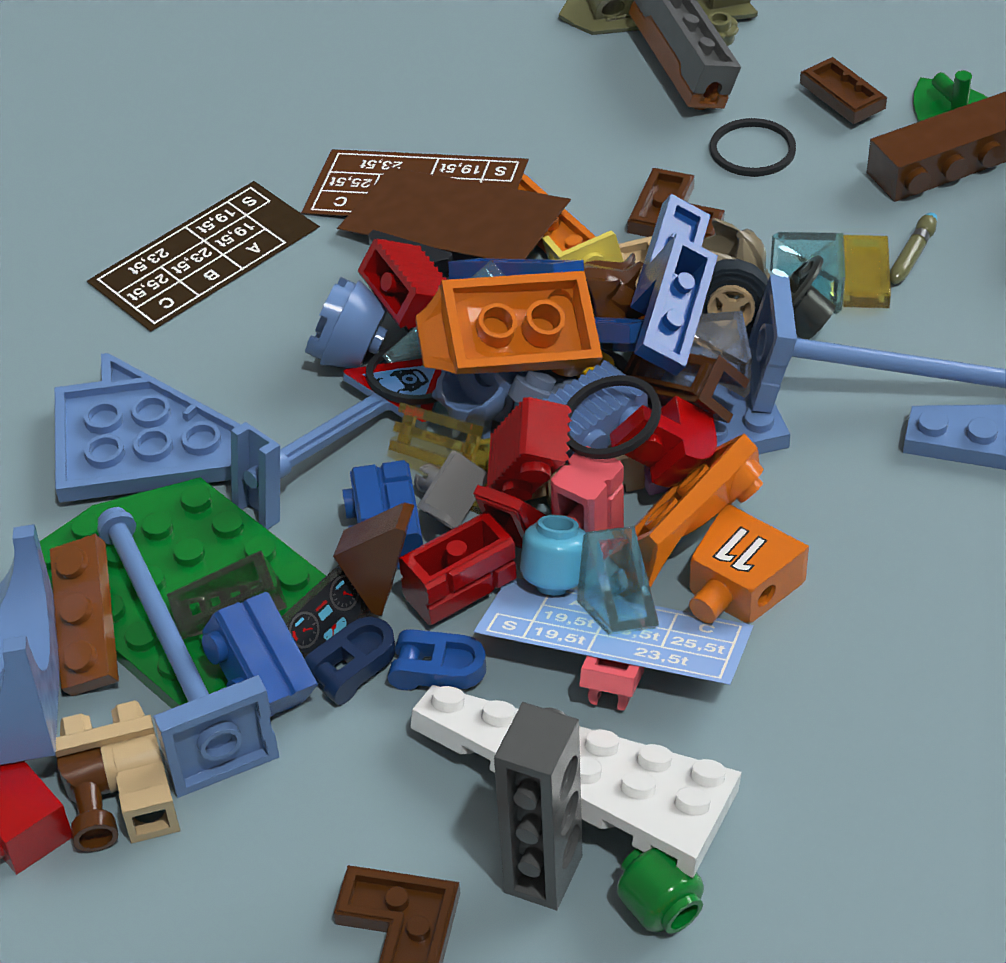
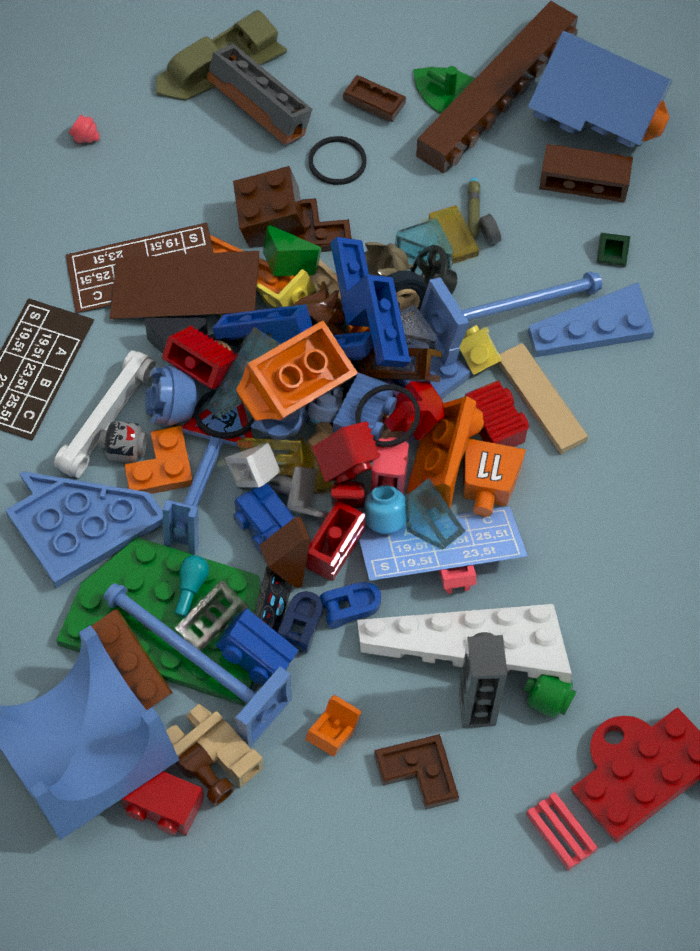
camera: 30 degrees left, 15 degrees up
(186, 359) = (74, 458): none -> white piece
(234, 537) = (193, 574): none -> teal piece
(258, 363) = (123, 442): none -> light grey head
(308, 404) = (169, 468): none -> orange plate
(308, 810) = (334, 726): none -> orange bracket
(406, 435) = (253, 466): none -> white slope
(439, 25) = (84, 130): none -> coral plate
(616, 211) = (289, 253): none -> green slope
(619, 160) = (268, 200): none -> reddish brown brick
(724, 25) = (273, 67): olive plate -> none
(795, 495) = (501, 420): none -> red brick
(816, 408) = (479, 349): none -> light yellow bracket
(881, 505) = (542, 399): none -> tan tile
(919, 275) = (489, 229): none -> dark grey tile

